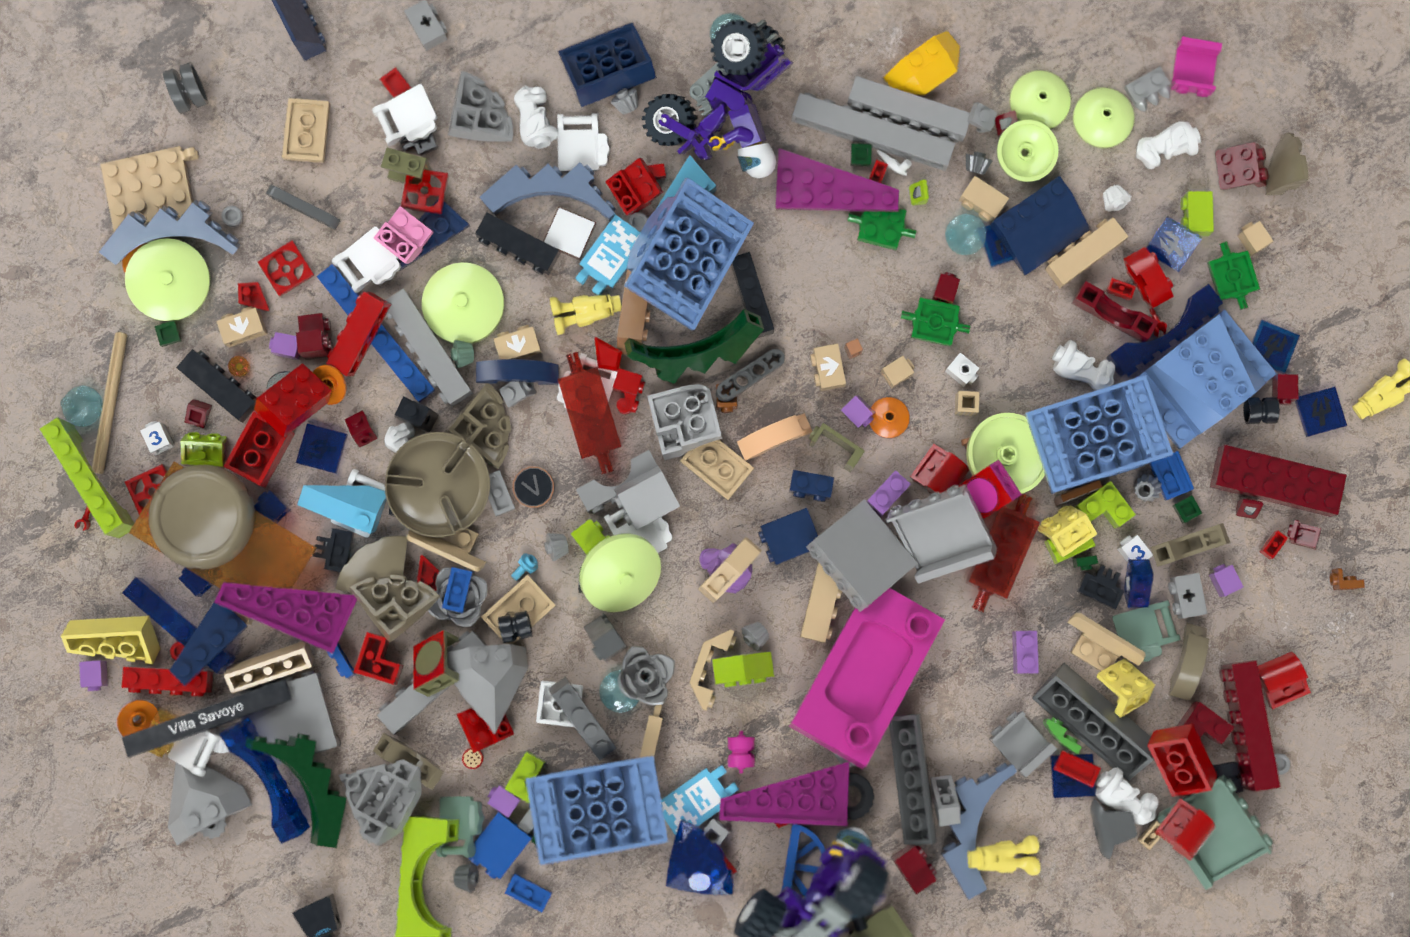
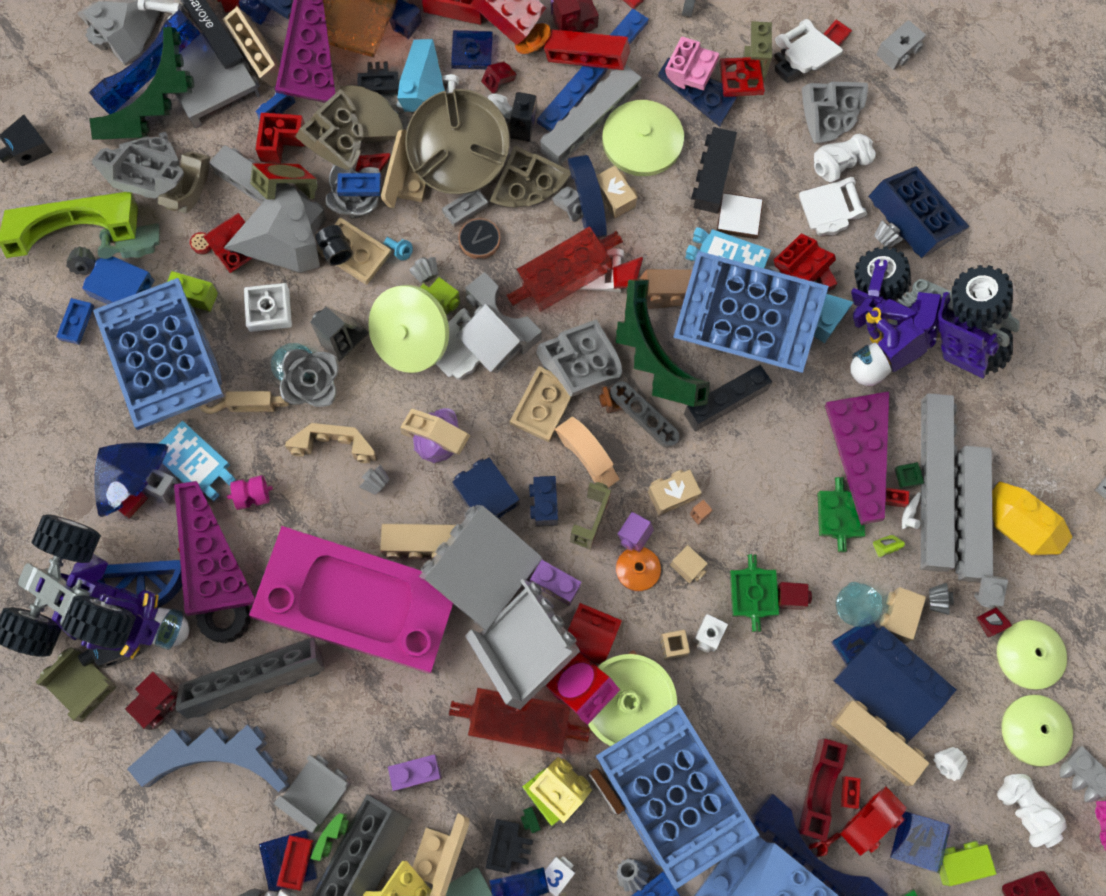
camera: 75 degrees right, 10 degrees down
(371, 260) = (658, 49): white piece -> none
(462, 353) = (593, 144): sand green piece -> none
(503, 800) = (159, 273): medium lavender brick -> none
(575, 184) = (773, 157): sand blue arch -> none
(582, 718) = (266, 308): dark grey arch -> none
(587, 310) = (668, 246): light yellow piece -> none
(630, 385) = (601, 304): red brick -> none
(743, 669) = (335, 471): lime brick -> none
(945, 800) = (231, 717): light grey brick -> none
(1001, 856) = (181, 795): light yellow piece -> none
(1041, 149) = (988, 646): yellowish green dish -> none
(1075, 365) = (749, 759): white animal -> none
(1110, 503) = (605, 825): lime brick -> none

